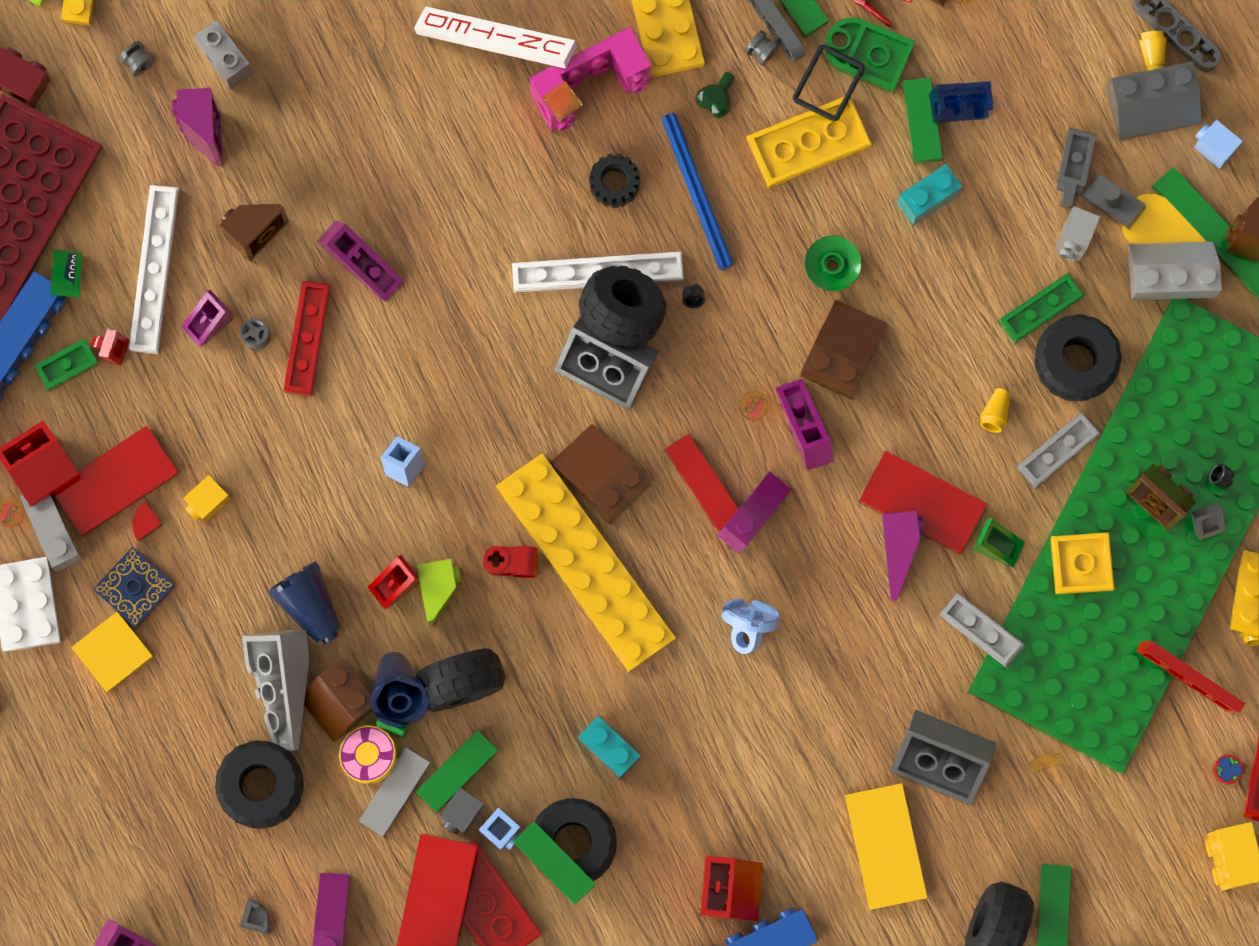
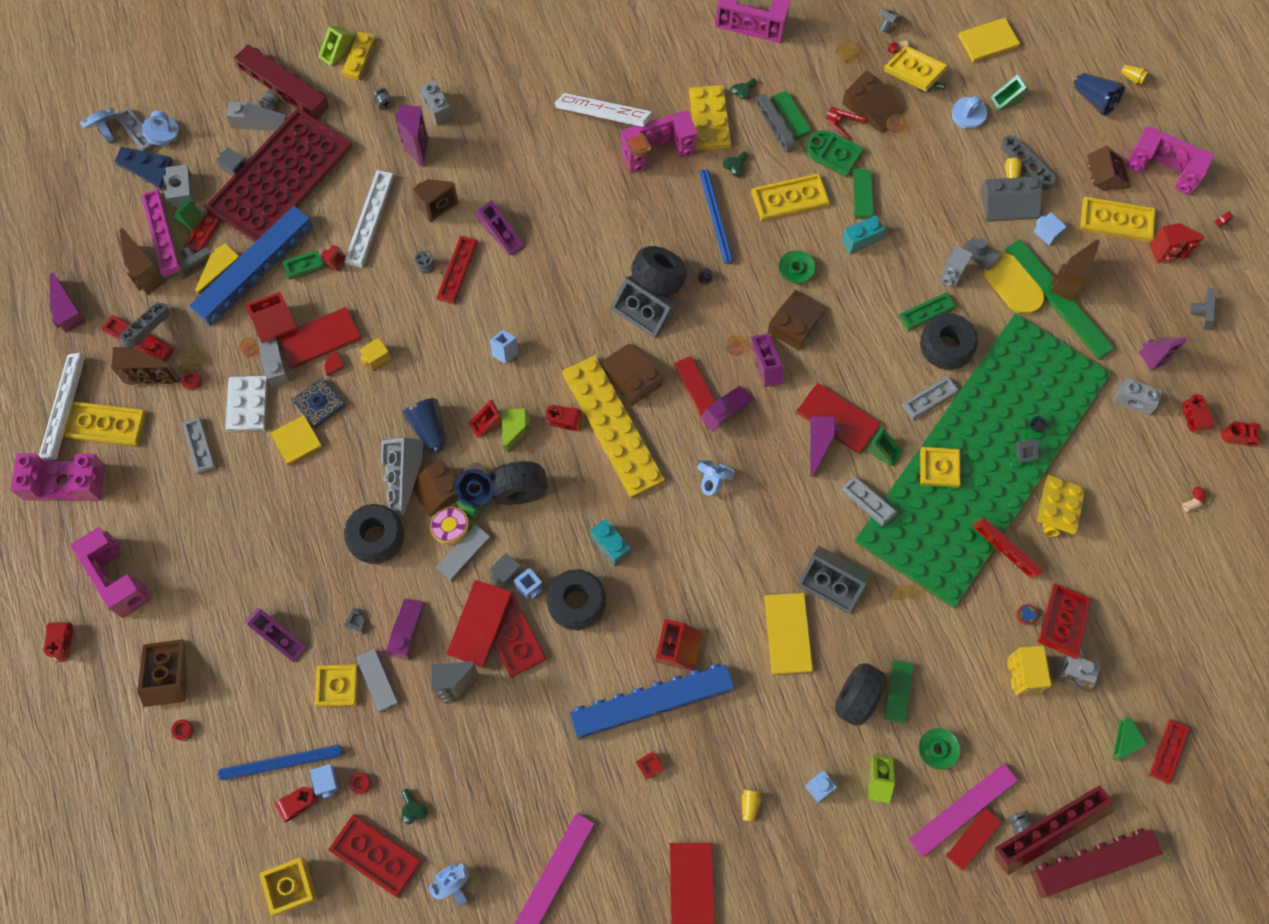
camera: 10 degrees right, 10 degrees down
(66, 273) = (313, 211): green slope -> none
(207, 319) = (397, 248): magenta slope -> none
(456, 771) = (508, 543): green tile -> none
(554, 863) = (561, 608): green tile -> none
(576, 272) = (626, 253): white tile -> none
(614, 197) = (665, 193): black tyre -> none
(762, 47) = (768, 139): dark grey wheel -> none
(807, 73) = (816, 174): black piece -> none
(961, 102) = (889, 183): clear blue hinge -> none
(996, 411) = (891, 369): yellow cone -> none
(1074, 165) = (957, 229): dark grey hinge -> none
(1161, 496) = (996, 430): reddish brown slope -> none
(1174, 271) = (1016, 298): light grey slope -> none

